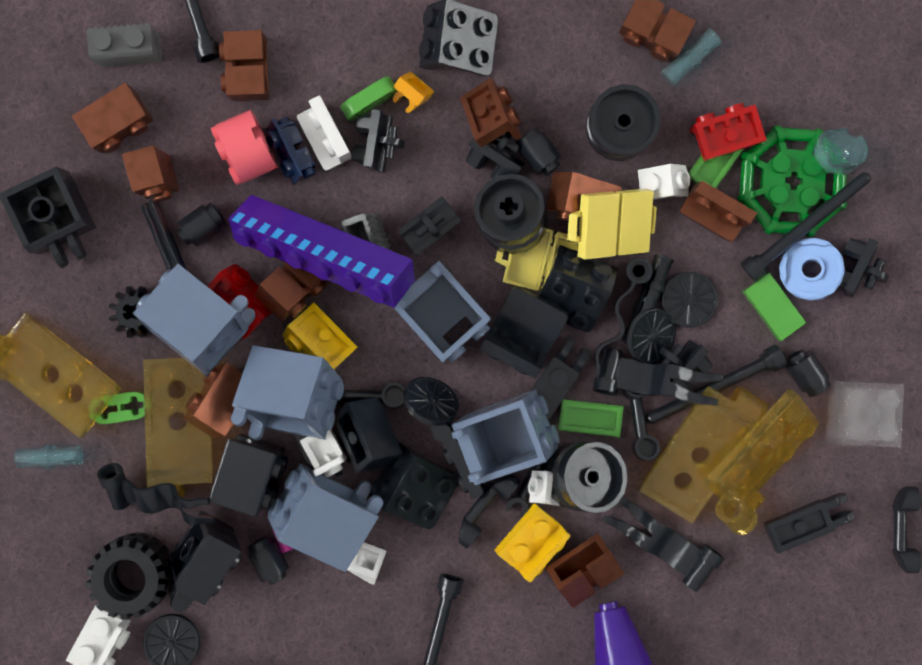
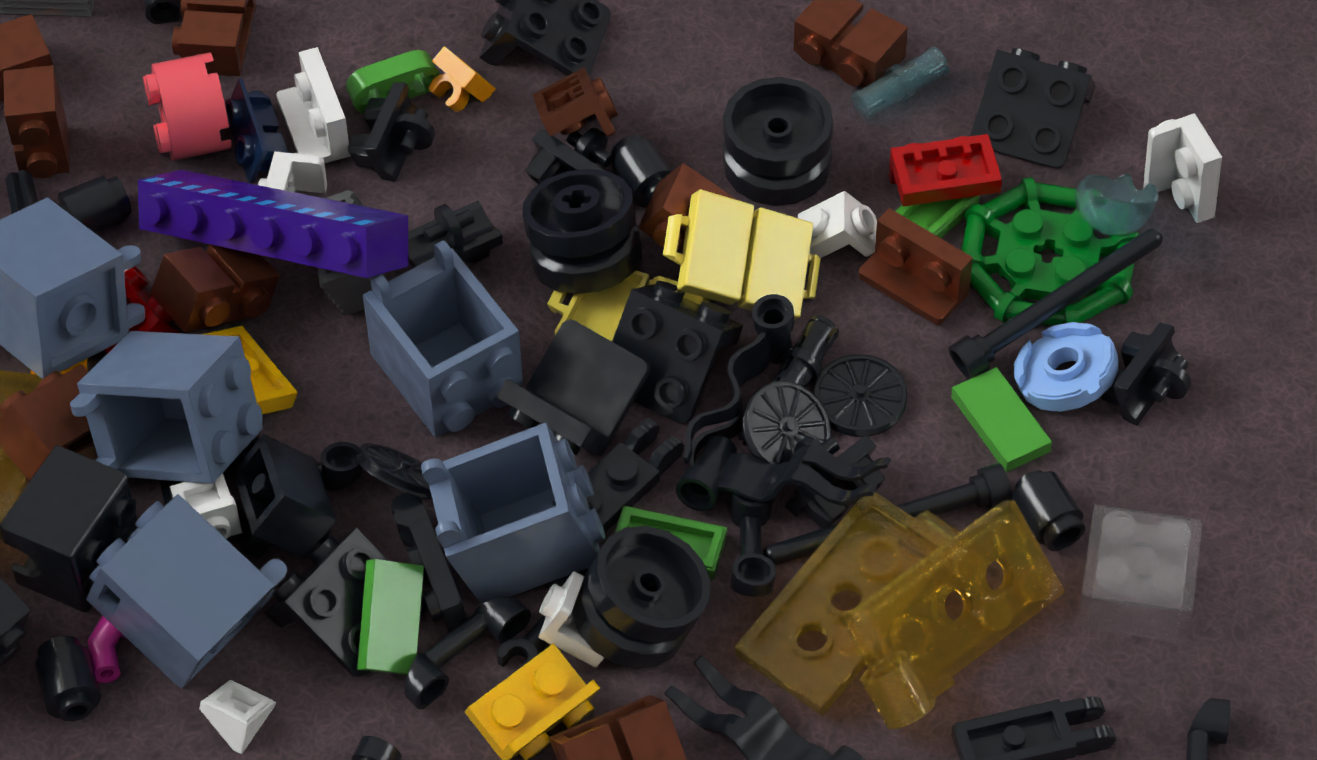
camera: 10 degrees right, 35 degrees down
(314, 198) = (296, 172): none -> white bracket
(443, 502) = (390, 616): none -> bright green tile
(777, 67) = (1033, 106): none -> black bracket
(884, 115) = (1187, 162): none -> white bracket

